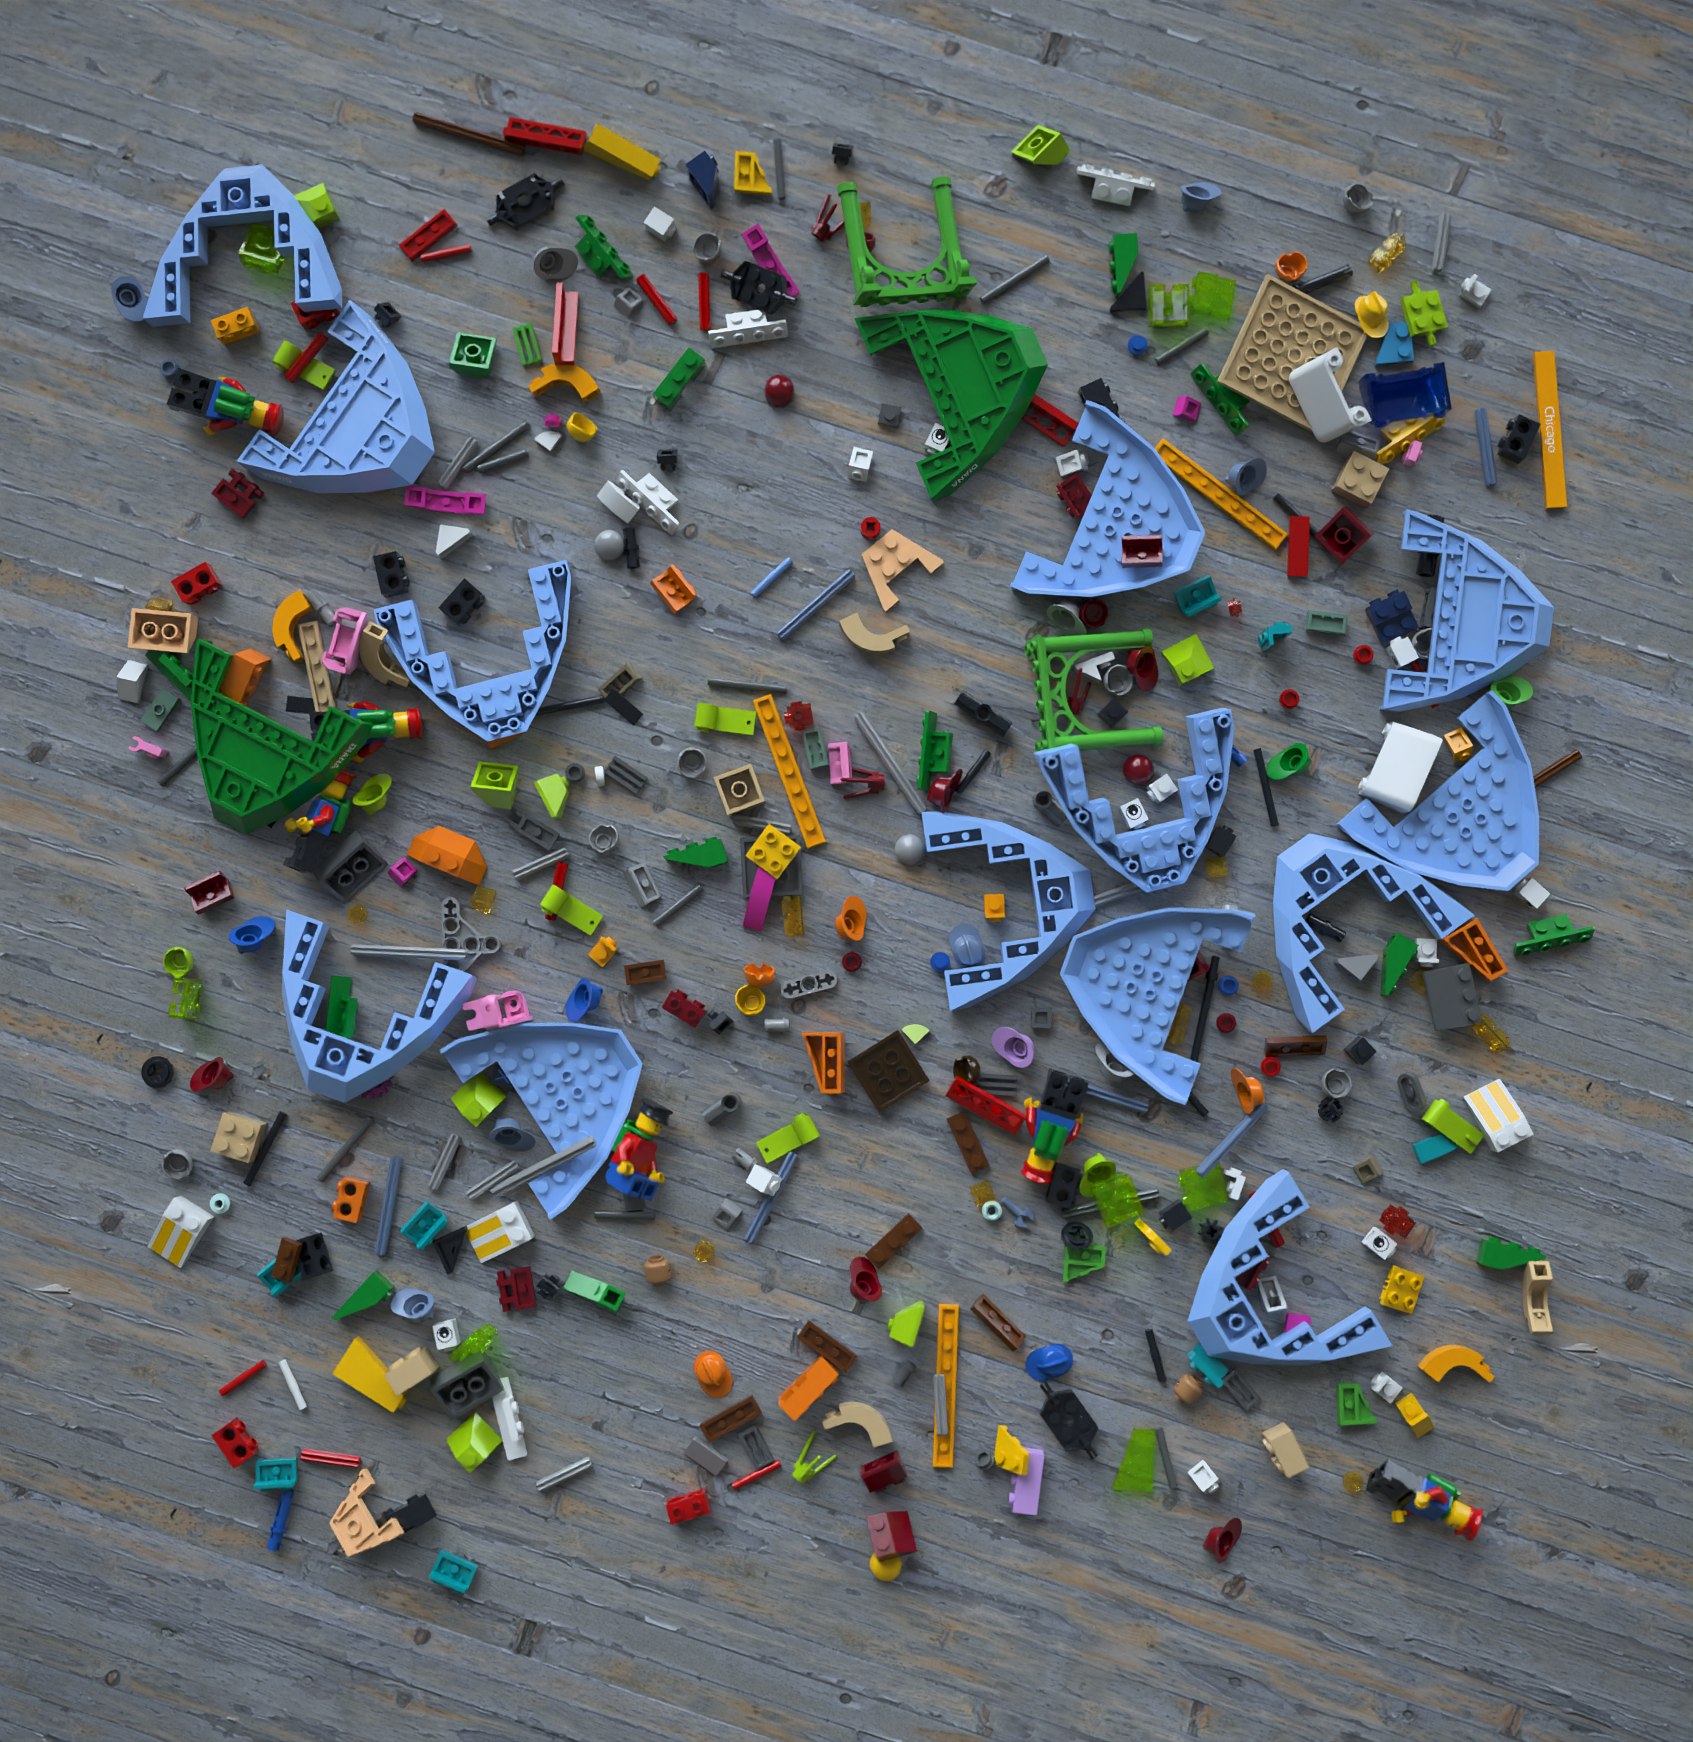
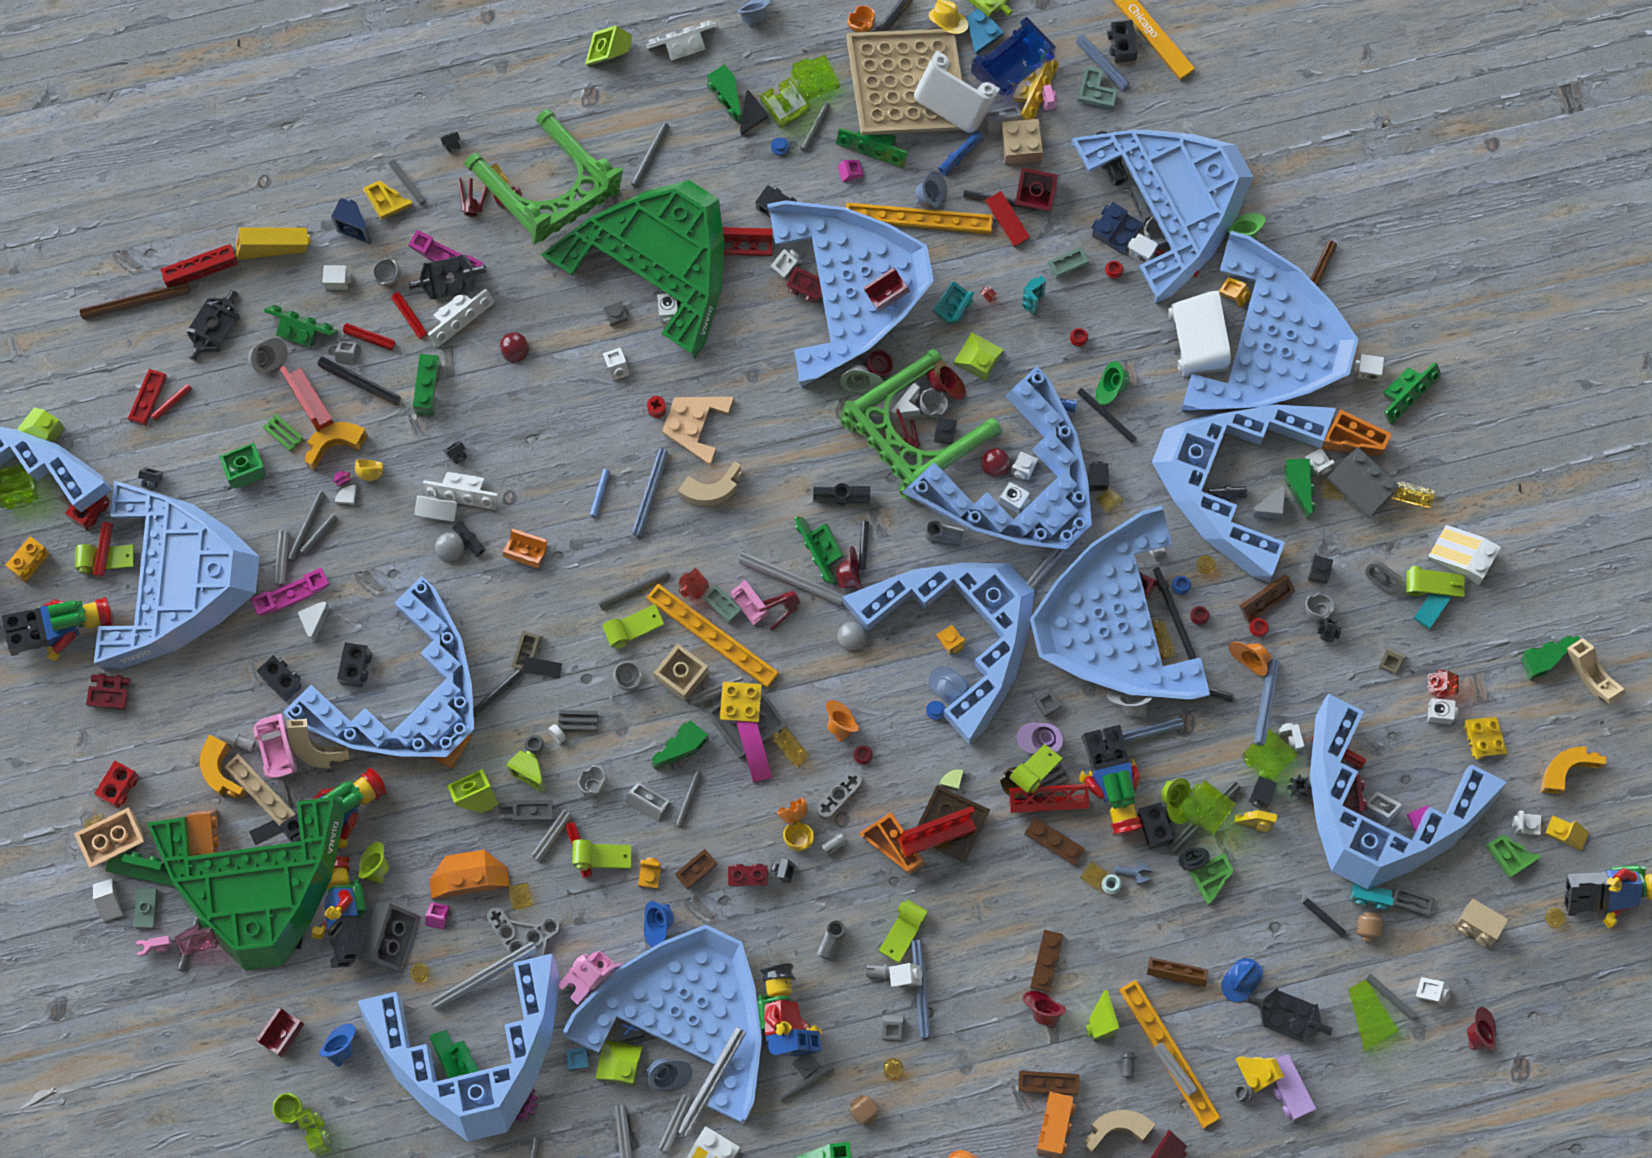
camera: 35 degrees left, 15 degrees down
(183, 767) = (195, 940): none -> clear pink slope
(444, 1072) = (577, 1058): none -> dark azure tile
(622, 336) = (359, 381): none -> black axle
(868, 1077) = (937, 832): none -> red fence
(990, 1074) = (1035, 769): none -> lime door
(1289, 457) = (960, 153): none -> blue pin
(1457, 472) = (1092, 92): none -> sand green plate

